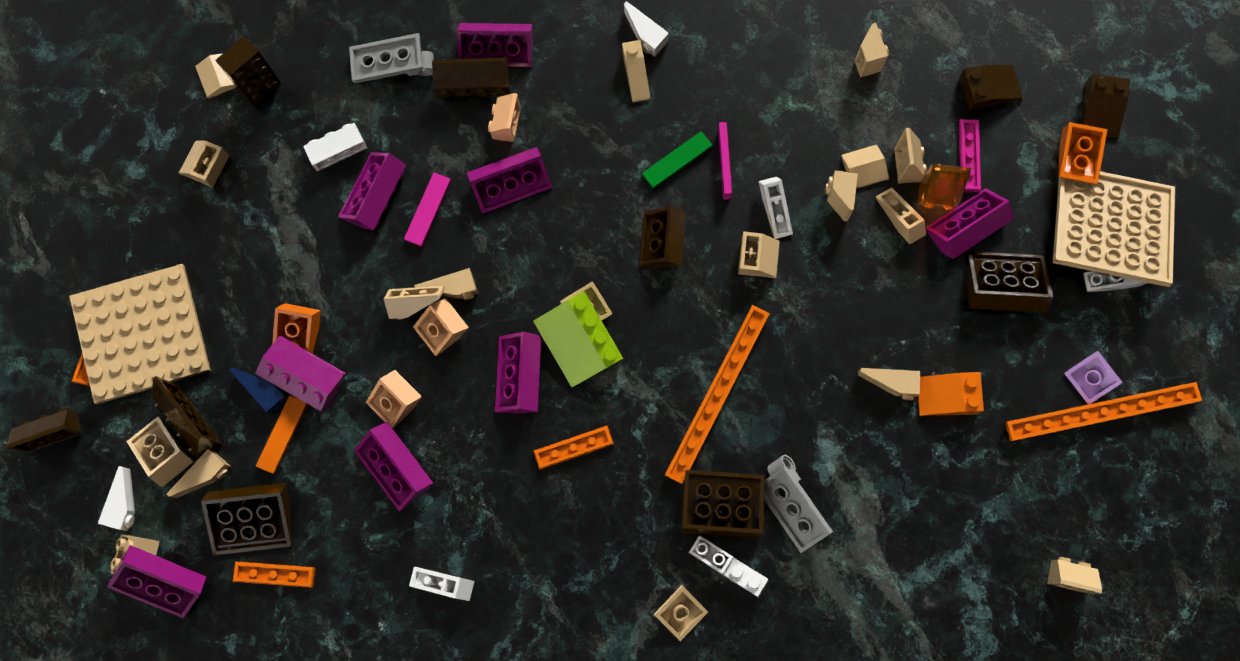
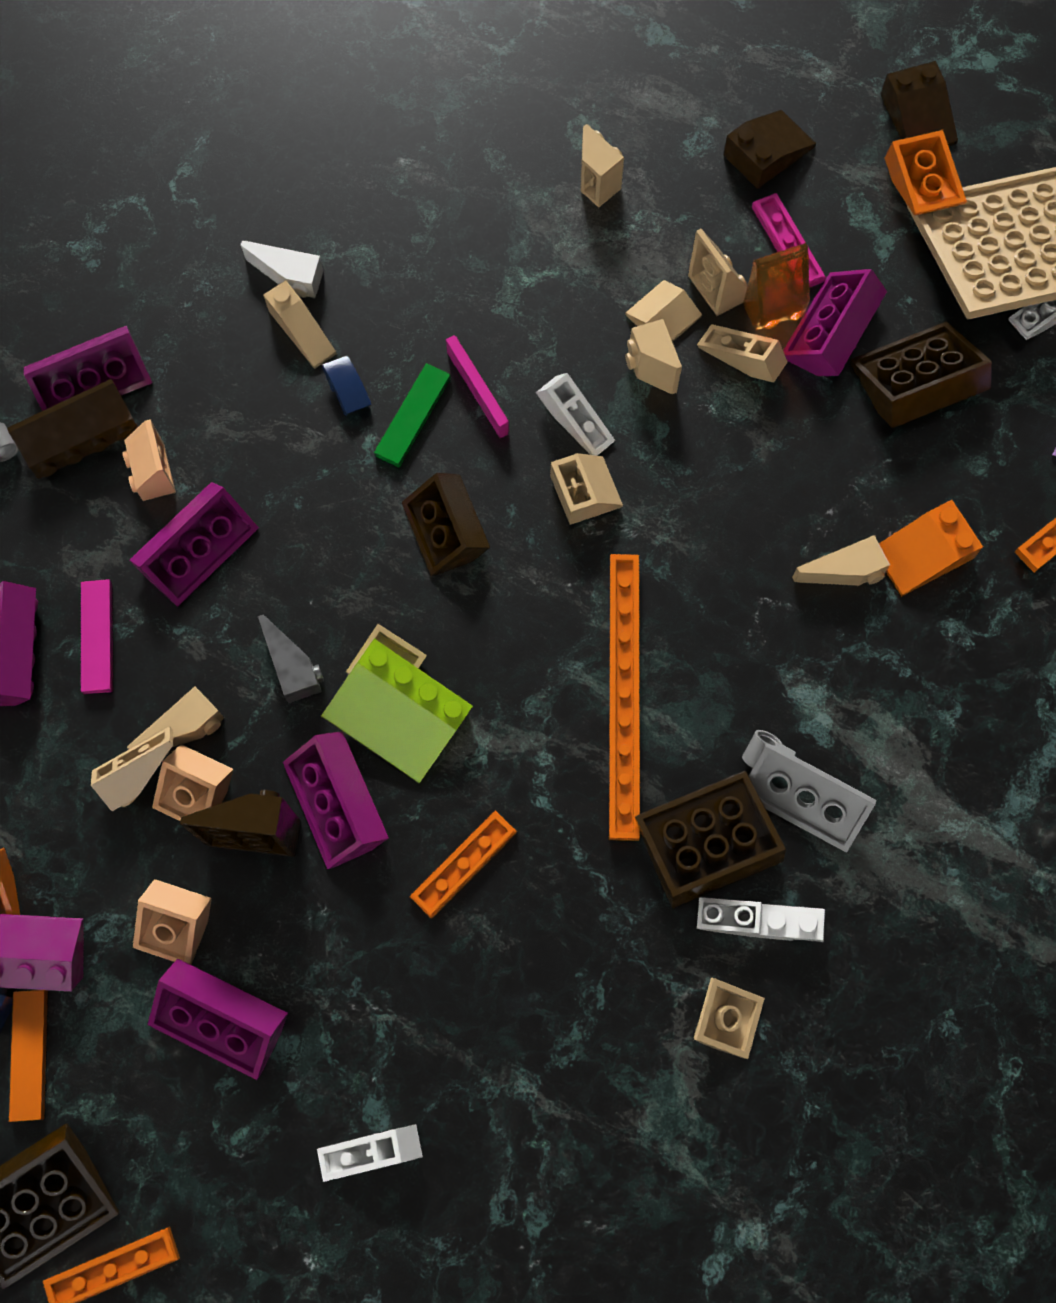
camera: 30 degrees left, 5 degrees down
(462, 366) = (248, 824): none -> dark brown slope
(530, 286) = (292, 665): none -> flat silver slope
(646, 122) = (347, 385): none -> dark blue slope

